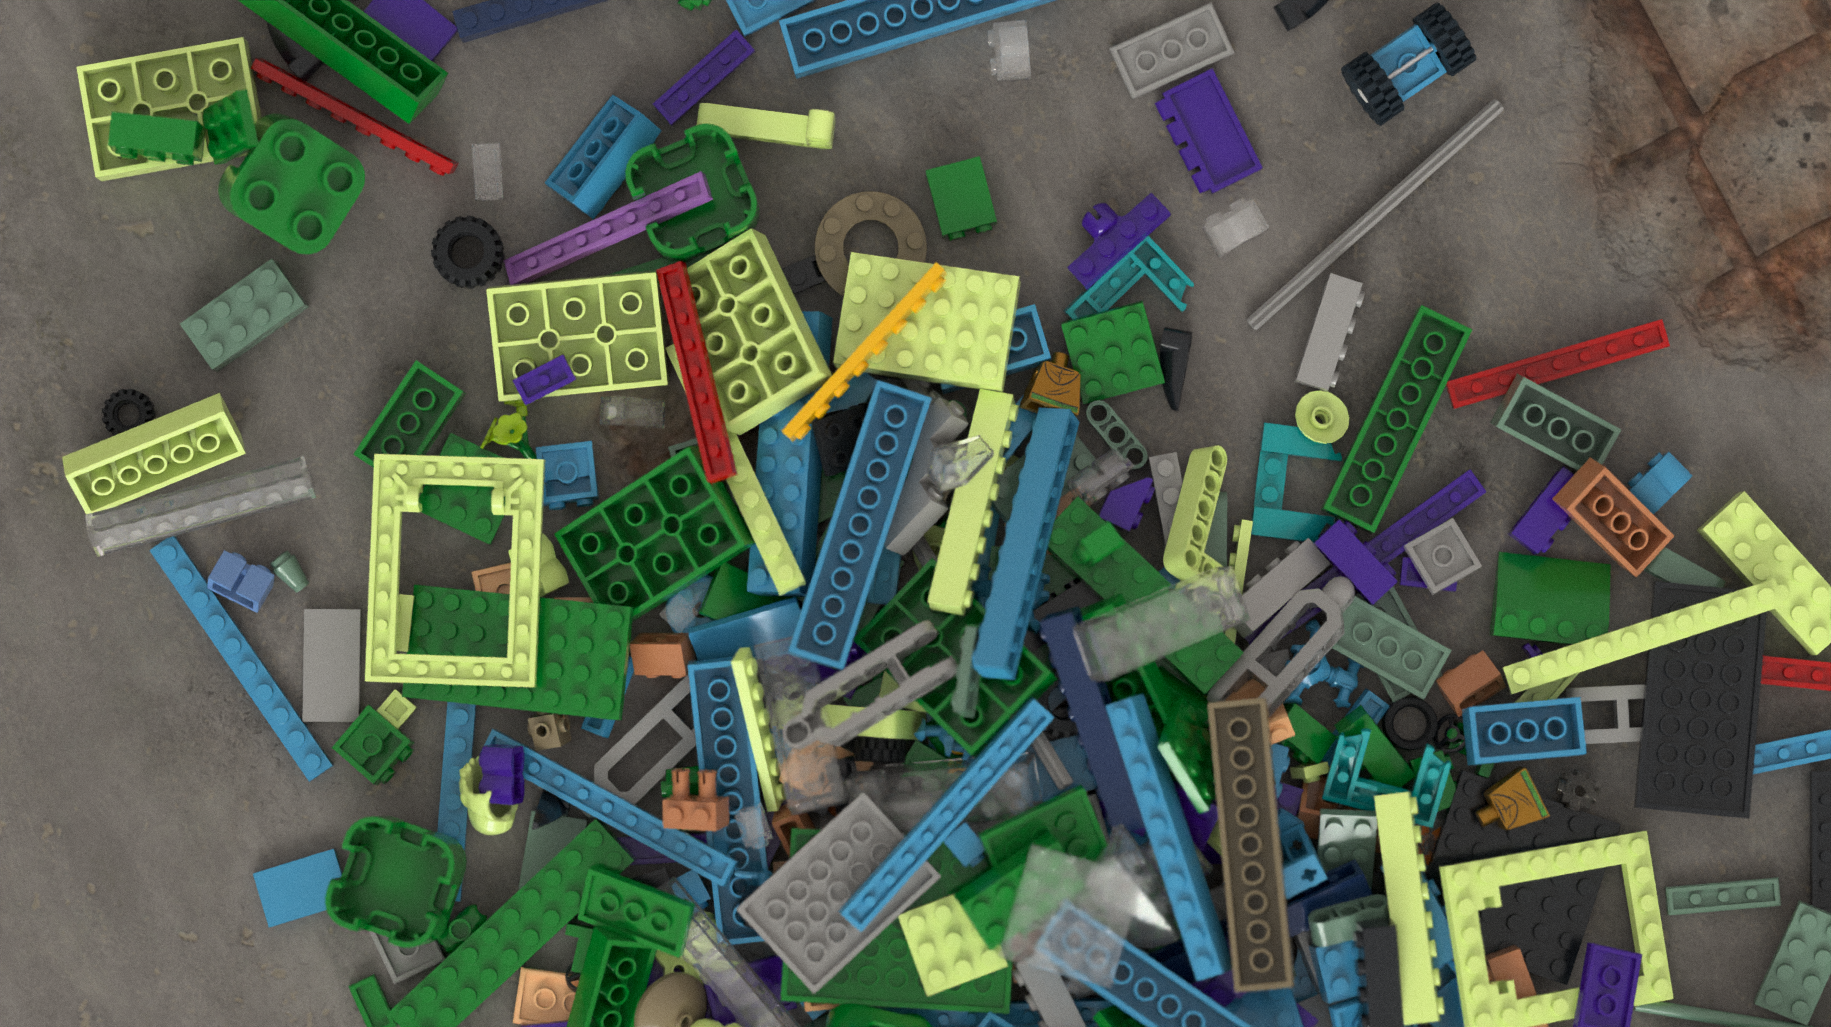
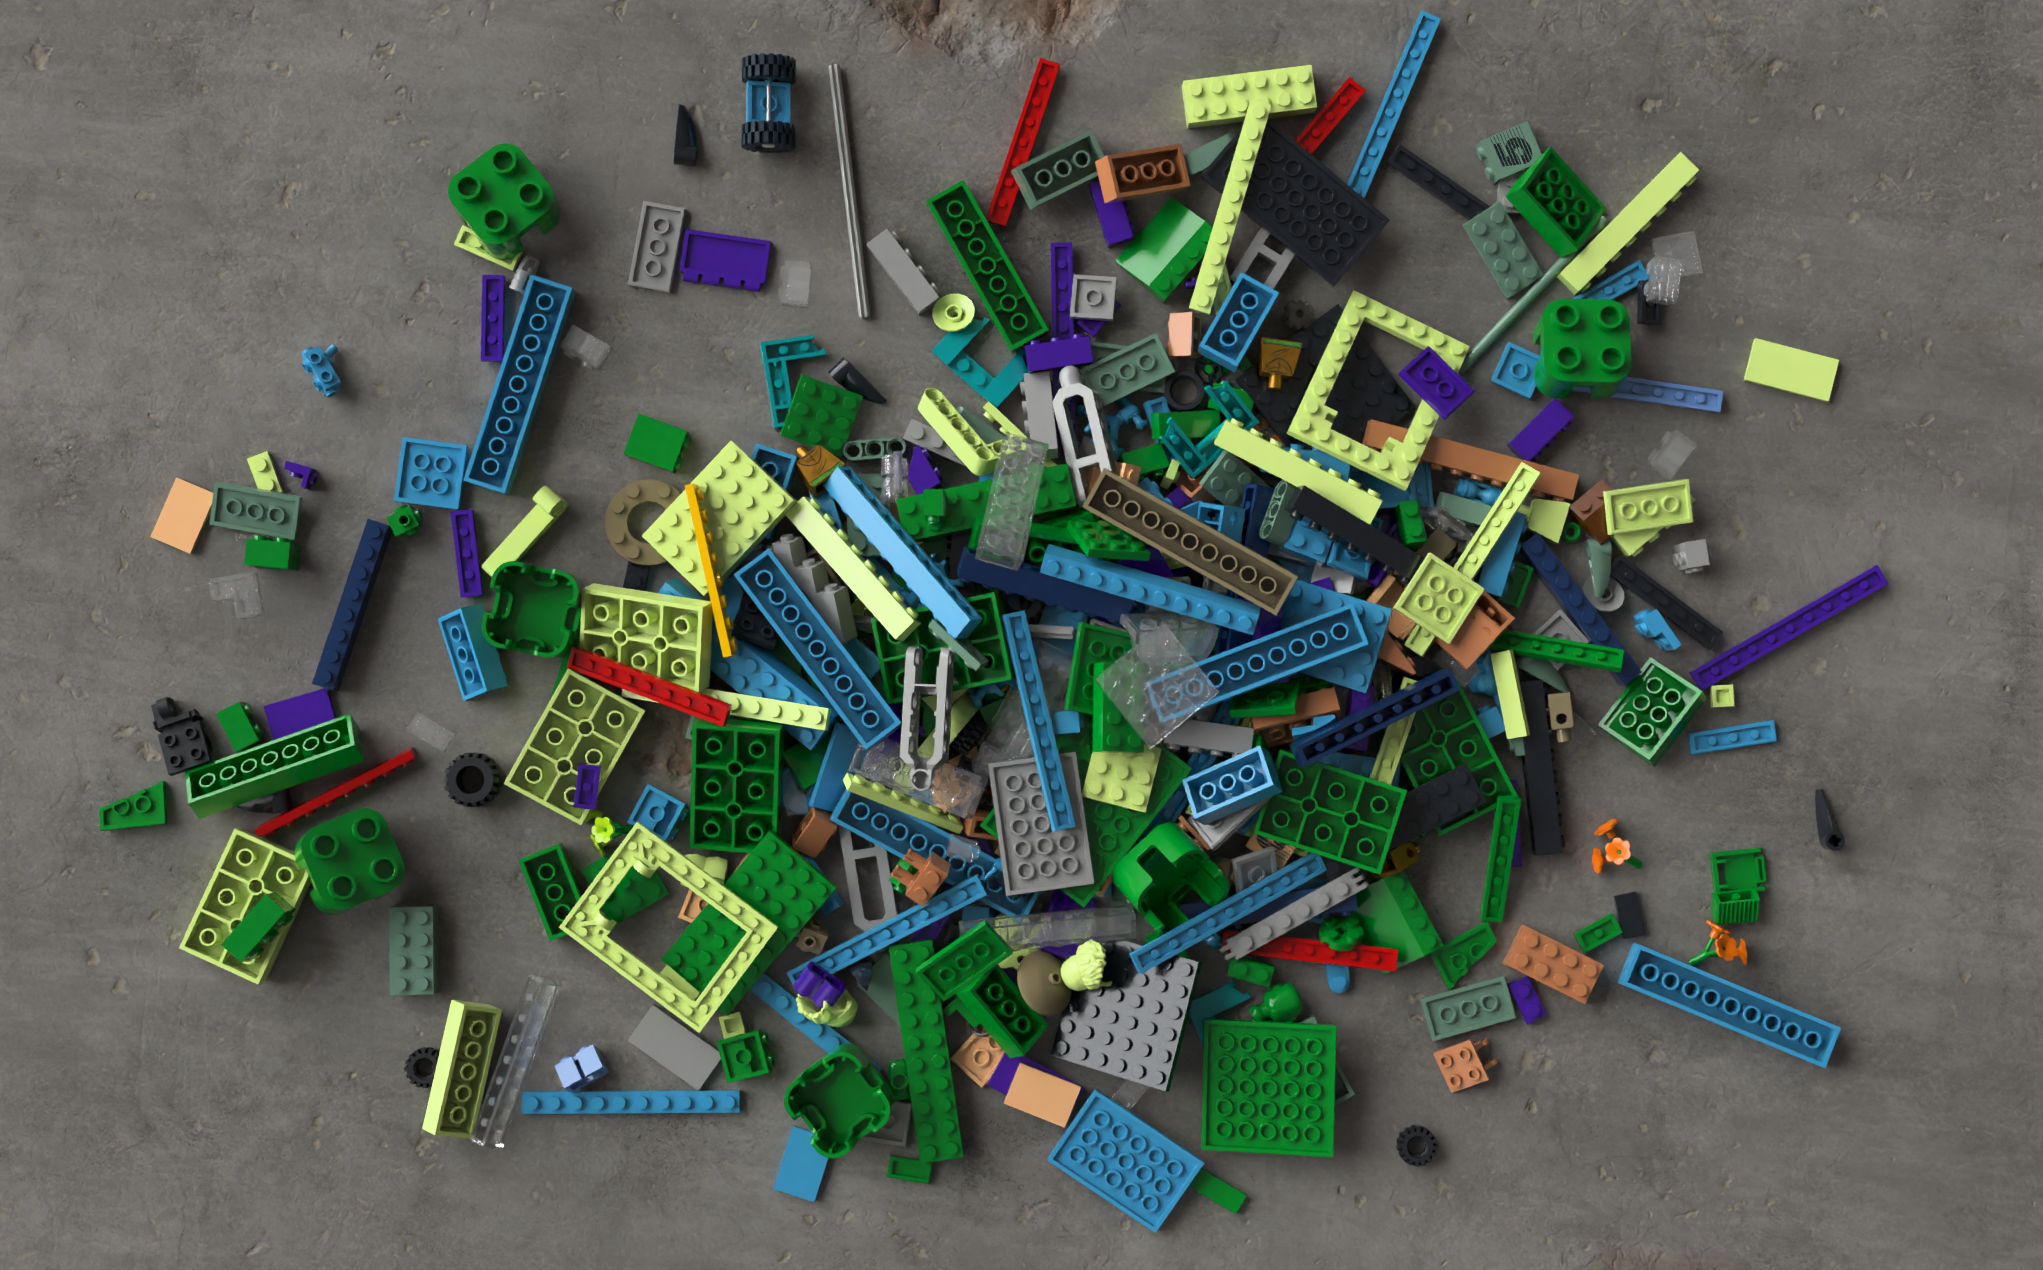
camera: 60 degrees left, 0 degrees up
(230, 127) = (285, 875): green plate -> none
(289, 570) = (597, 1032): sand green cone -> none
(608, 229) = (520, 680): medium lavender plate -> none
(632, 412) = (647, 745): clear slope -> none
(957, 462) = (821, 560): clear slope -> none
(1115, 237) = (749, 363): dark purple plate -> none
(1659, 481) = (1140, 129): dark azure brick -> none
(1722, 896) = (1426, 271): sand green tile -> none

